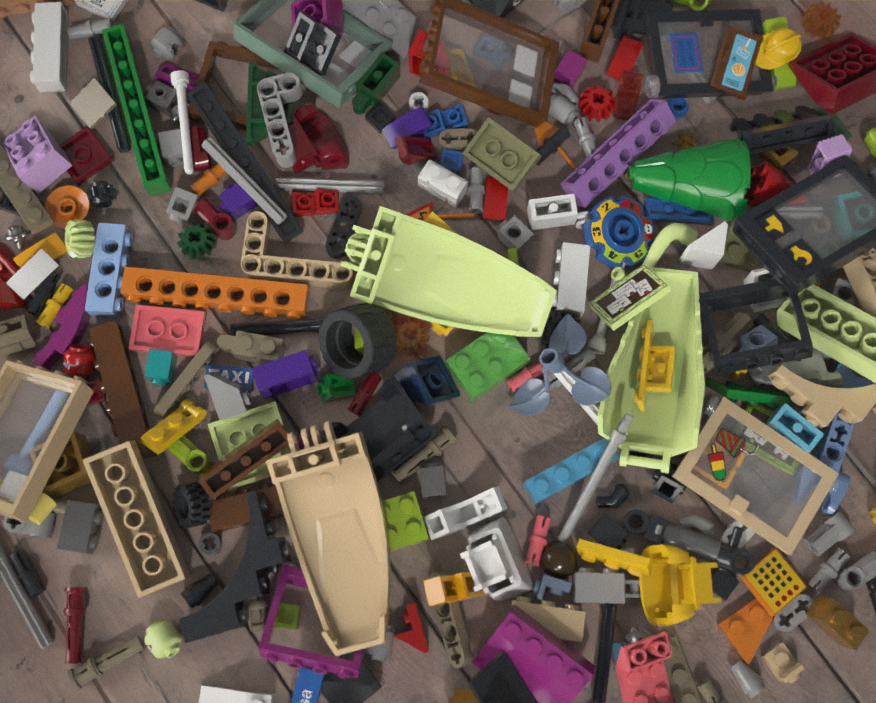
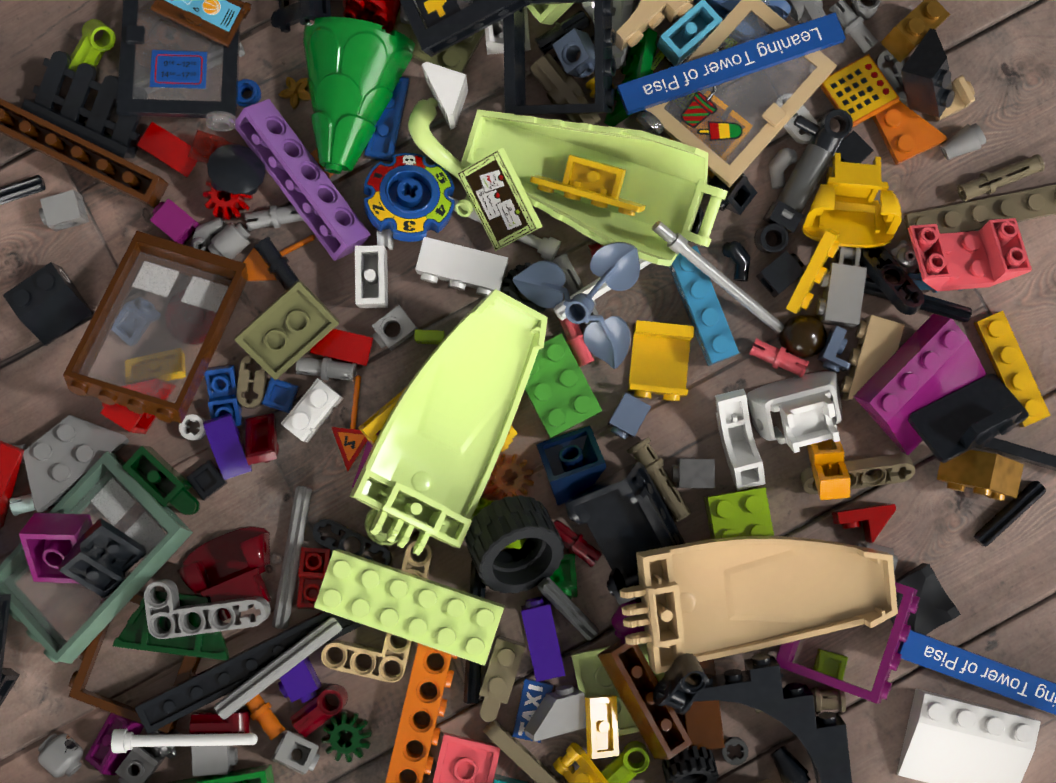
camera: 80 degrees left, 10 degrees up
(220, 429) = (601, 726): none -> plate
(256, 478) = (682, 684): none -> black piece
(300, 268) = (409, 606): none -> yellowish green brick
(311, 392) = (568, 608): none -> dark grey axle
(471, 423) = (628, 416): none -> sand blue brick
(521, 444) = (660, 360): none -> yellow panel
(608, 629) = (891, 291): none -> black beam
(617, 103) = (235, 170): none -> black dish
(775, 465) = (731, 63): none -> blue tile
(797, 635) = (928, 77): none -> black slope

